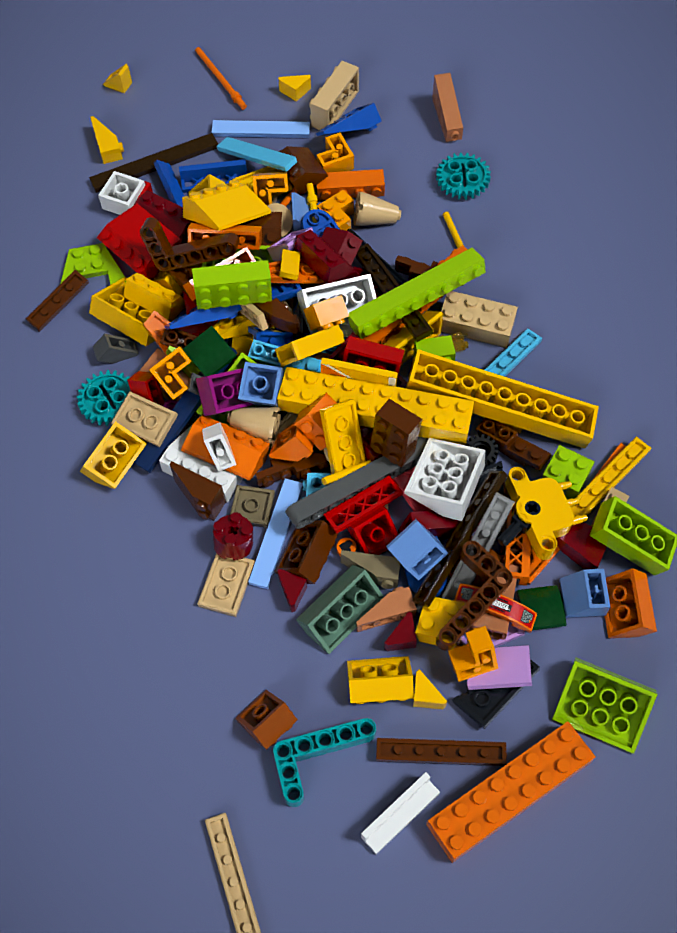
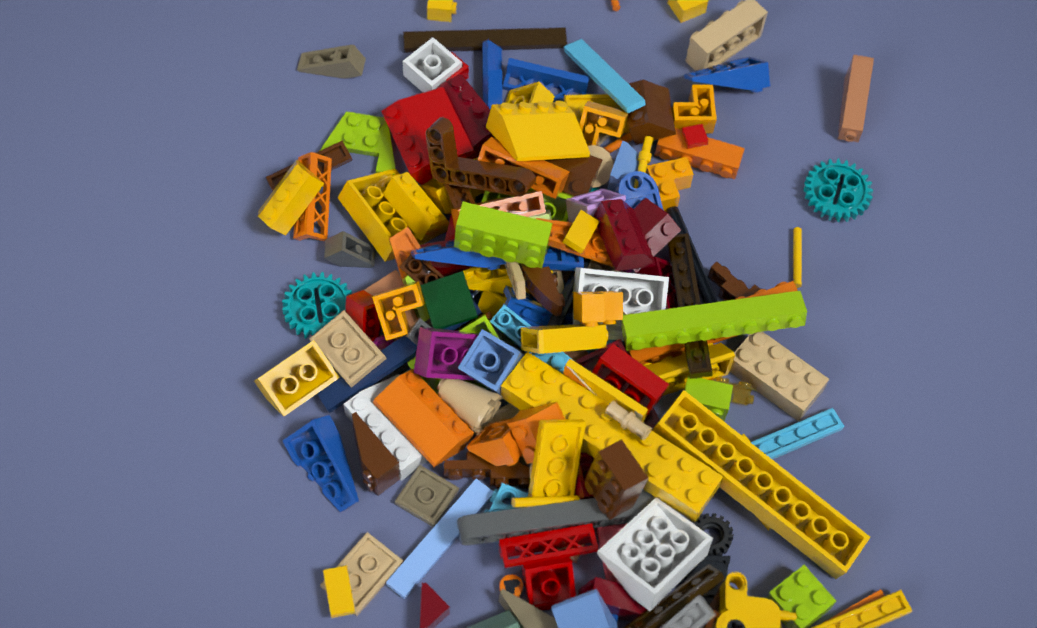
camera: 15 degrees right, 0 degrees up
(45, 216) = (333, 62): none -> dark tan slope
(52, 324) = (290, 198): none -> yellow slope
(64, 319) = (305, 224): none -> orange fence
(157, 506) = (323, 457): none -> blue wedge
(214, 602) = (339, 591): none -> yellow tile
(218, 446) = (414, 415): white slope -> none
(233, 536) = (389, 524): dark red brick -> none
(269, 129) = (625, 43): light blue tile -> none
(308, 550) = (465, 574): reddish brown slope -> none
(342, 172) = (694, 136): none -> red tile
(374, 211) = (713, 196): tan cone -> none
(386, 386) = (628, 420): none -> tan pin
(512, 445) = (752, 543): reddish brown slope -> none

